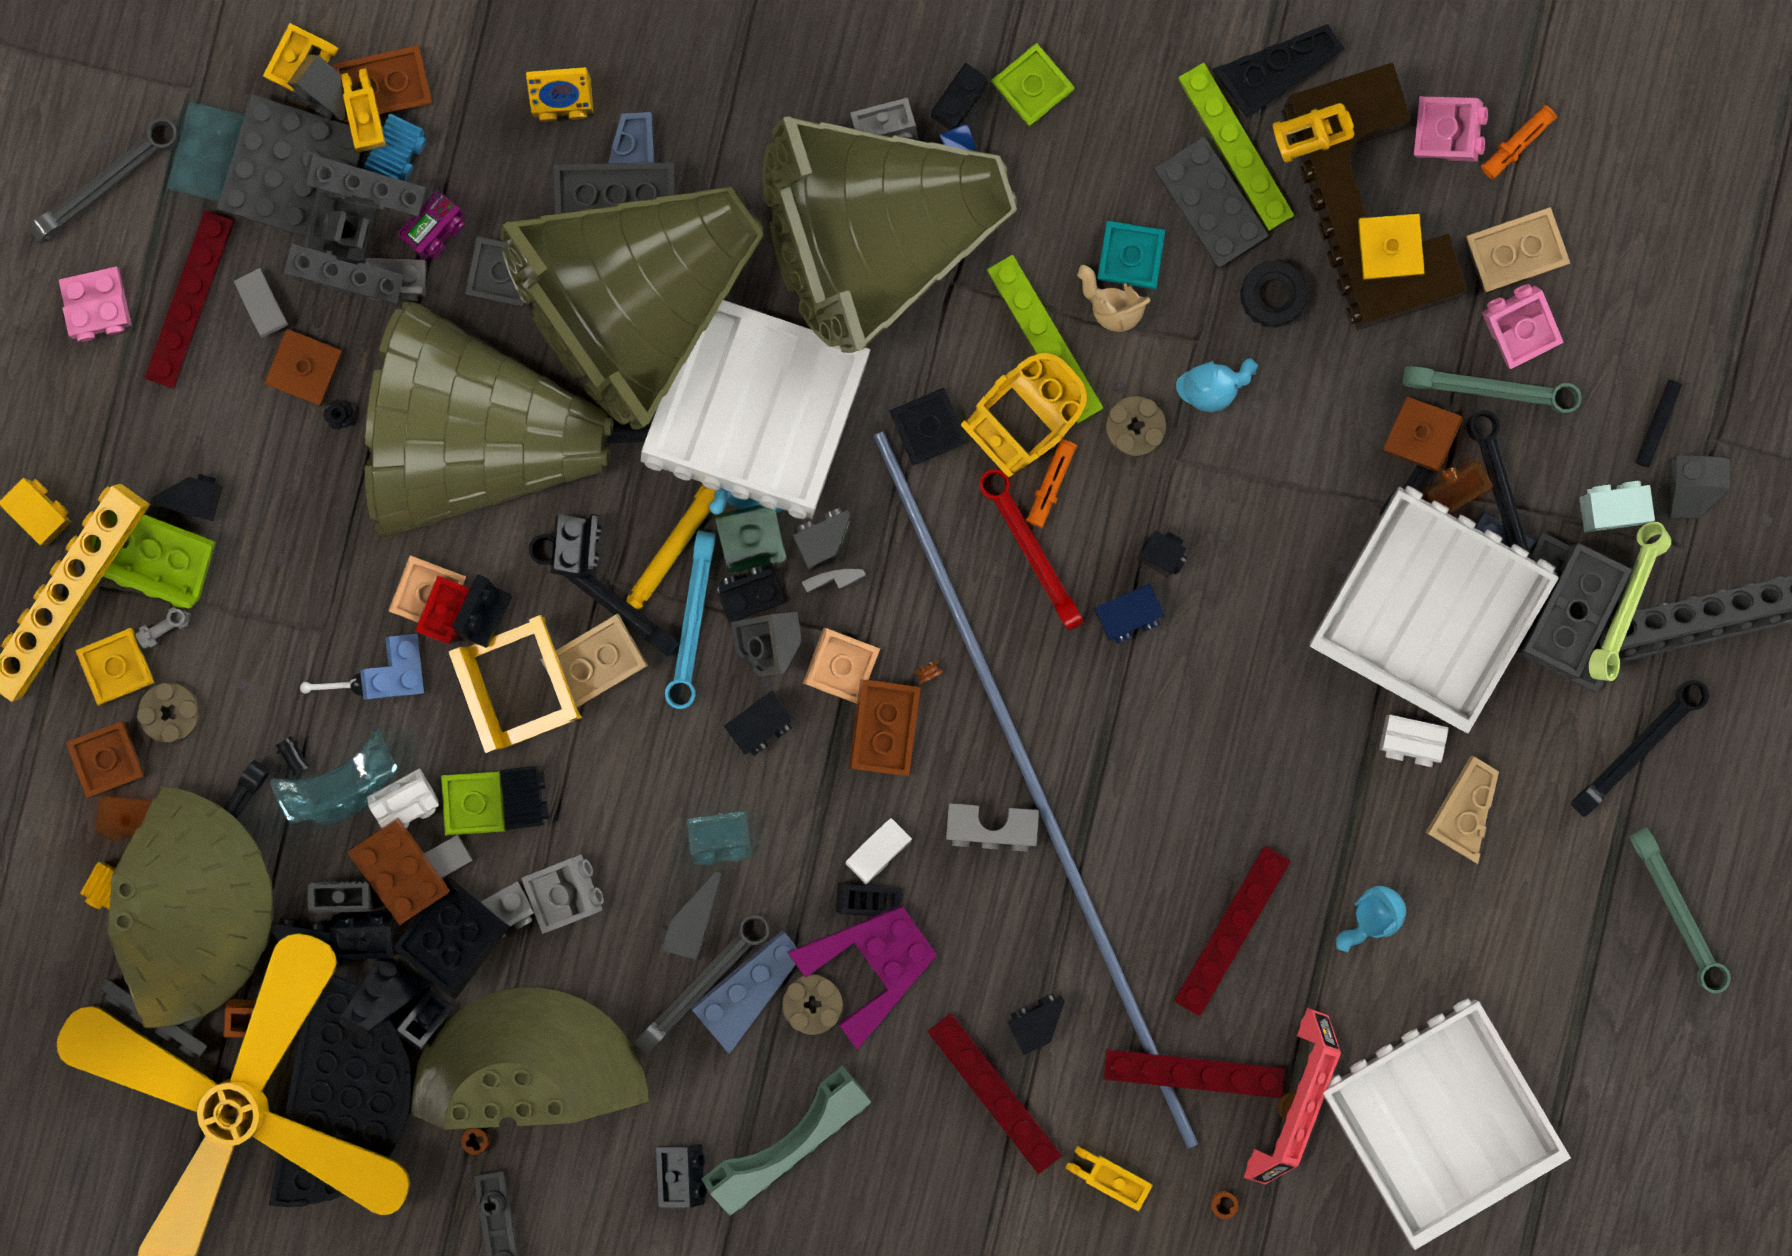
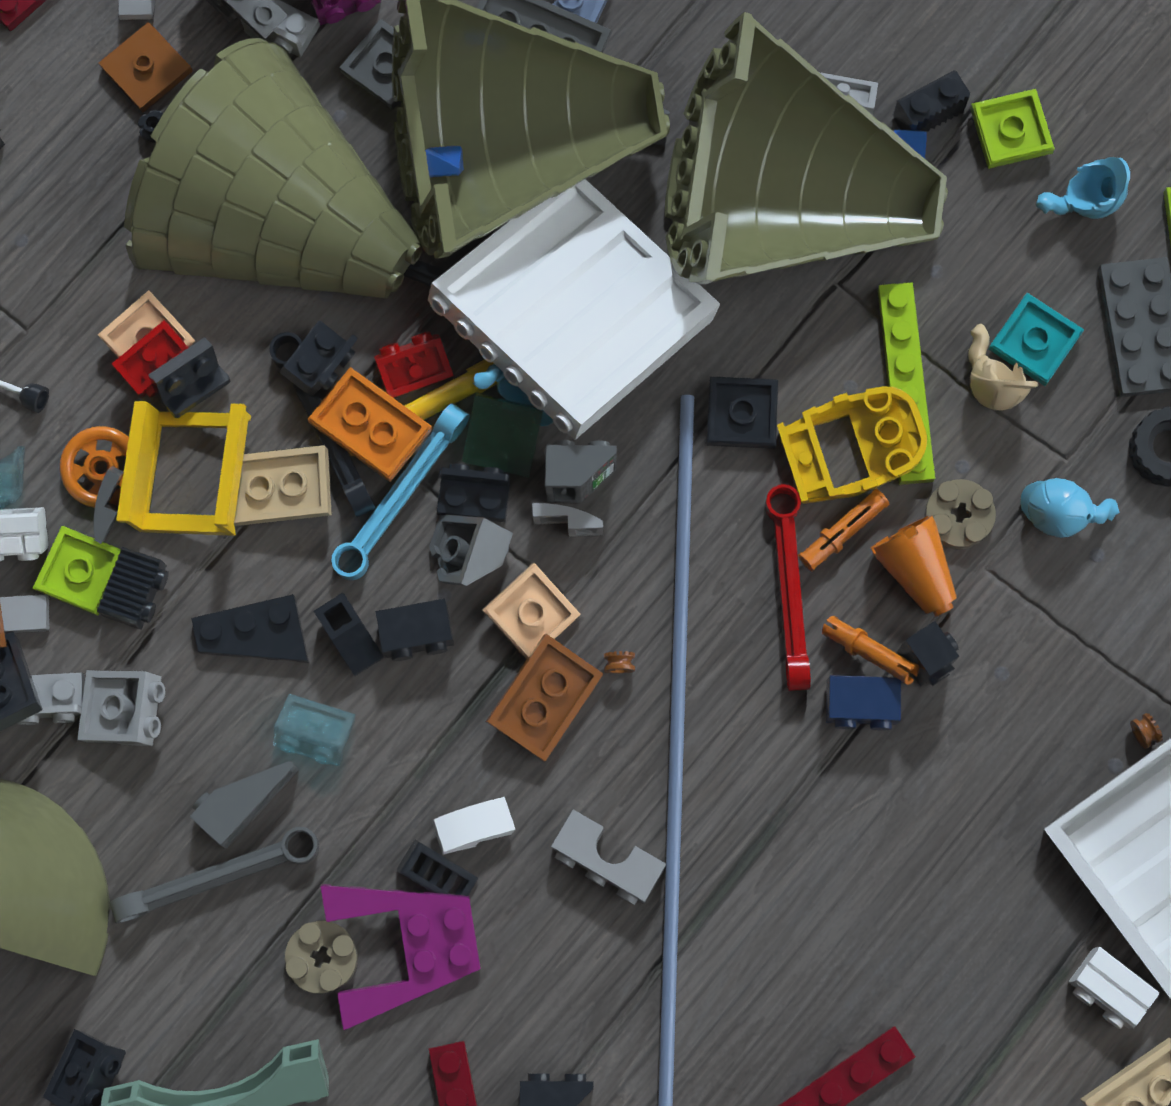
camera: 30 degrees right, 10 degrees down
(403, 674) = (75, 407): medium blue plate -> none
(425, 729) = (87, 441): none -> orange plate
(472, 747) = (105, 512): none -> dark grey slope
(593, 335) = (444, 161): none -> blue slope
(634, 783) = (255, 630): none -> black wing
(642, 579) = (370, 424): none -> orange tile
(649, 512) = (413, 364): none -> red bracket
(710, 752) = (348, 634): none -> black slope
(744, 993) = (251, 909): sand blue wing -> none
(1104, 569) = (857, 642): none -> orange pin
(1121, 112) = (1093, 191): none -> medium azure piece
(1122, 484) = (919, 565): none -> orange cone
(1353, 531) = (1145, 731): none -> dark orange bush

